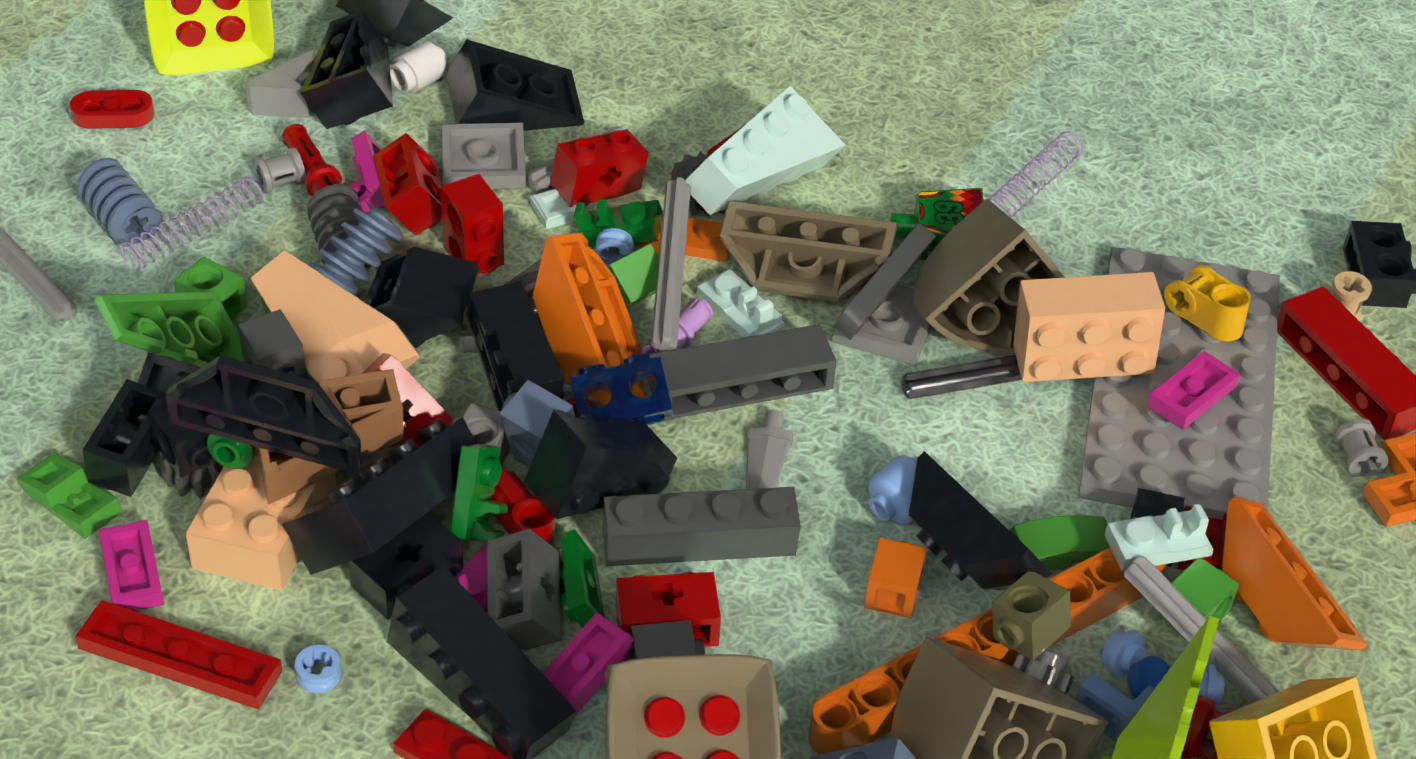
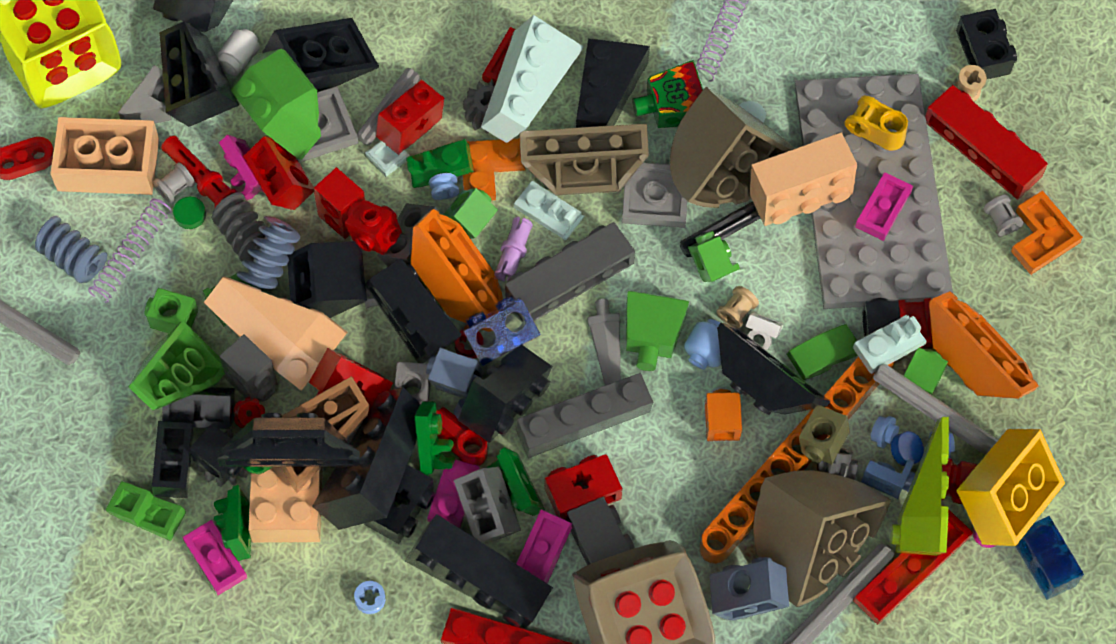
camera: 15 degrees left, 20 degrees up
(167, 534) = (235, 521): none -> green plate
(179, 654) = (275, 615): red plate -> none
(207, 121) = (105, 155): none -> light nougat brick
(285, 206) = (189, 212): none -> green tile
(443, 111) = (280, 100): none -> bright green wedge
(501, 249) = (373, 227): none -> red brick
(671, 266) = (496, 201): light grey axle -> none
(835, 454) = (653, 326): none -> bright green torso
(871, 181) = (608, 80): none -> black wedge
(884, 281) = (649, 171): dark grey beam -> none
(940, 395) = (712, 257): none -> bright green brick
(963, 458) = (737, 306): none -> tan bush
(987, 489) = (764, 326): none -> white tile

